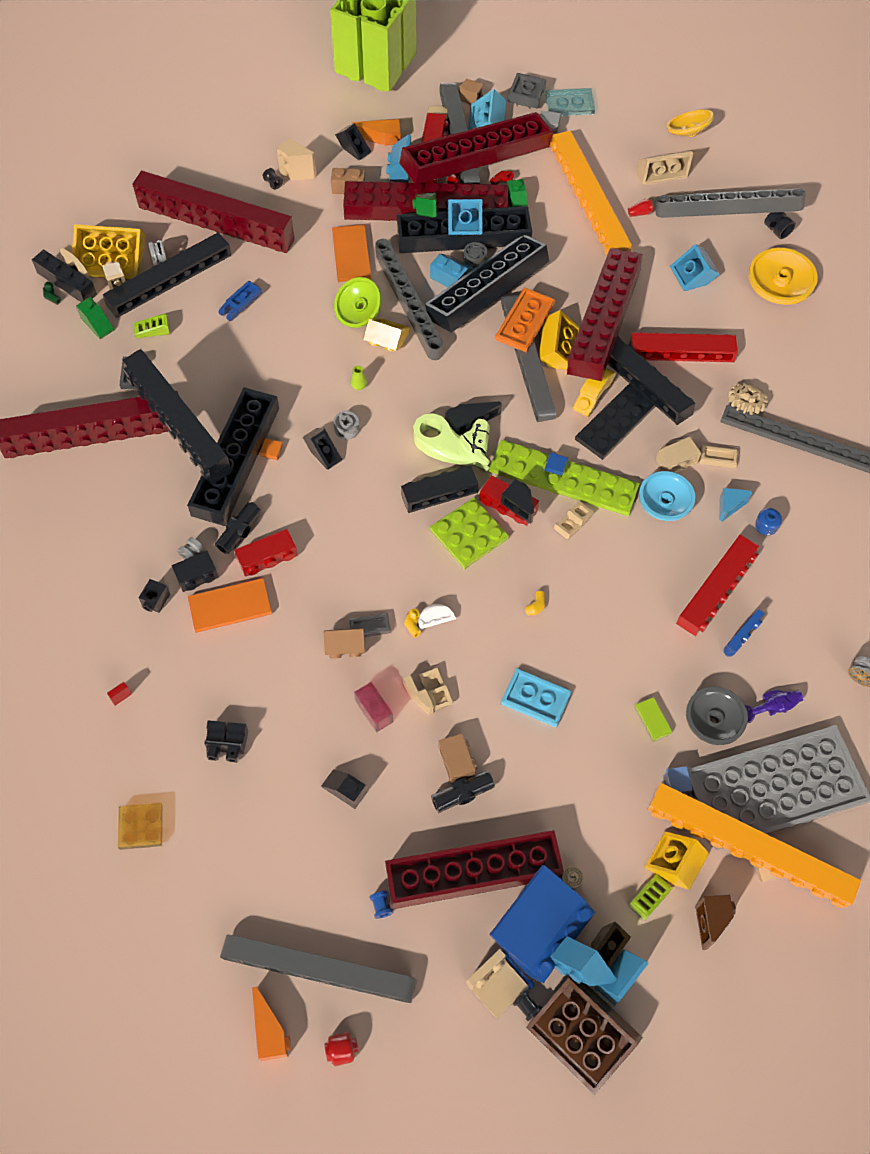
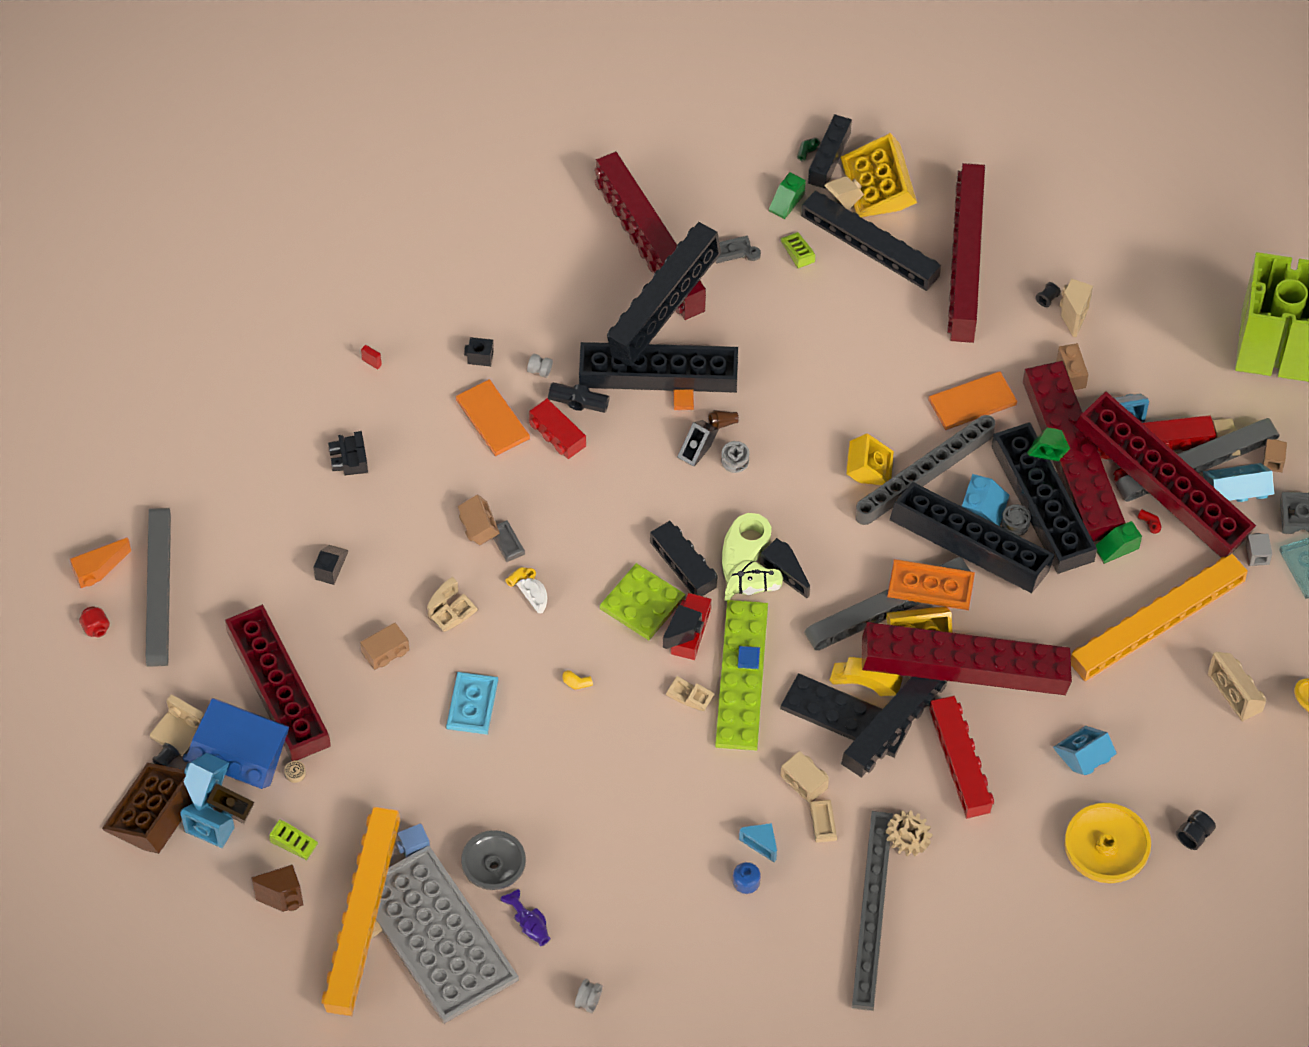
camera: 75 degrees right, 5 degrees down
(73, 262) = (849, 149): tan slope -> none
(140, 826) = (250, 414): clear yellow plate -> none
(155, 249) = (894, 219): light grey wheel -> none
(195, 571) = (517, 376): black brick -> none
(240, 300) = (863, 315): blue hinge -> none
(304, 424) = (722, 418): none -> reddish brown cone
(350, 299) = (895, 420): lime dish -> none
(353, 141) = (1137, 356): black slope -> none
(358, 378) = (797, 450): lime cone -> none
(373, 707) = (417, 563): clear pink brick -> none
(380, 131) = (1168, 383): orange slope -> none
(381, 904) = (220, 620): blue bush -> none
(462, 791) = (353, 659): black piece -> none
(464, 216) = (1047, 484): dark azure slope -> none
(641, 208) = (1161, 677): red cone -> none
(653, 719) = (479, 811): lime tile -> none
(669, 488) = (743, 760): medium azure dish -> none
(677, 859) = (333, 855): yellow slope -> none
(717, 585) = (652, 842): red brick -> none
(730, 203) = (1194, 763): dark grey beam -> none
(743, 634) = (600, 875): blue hinge -> none

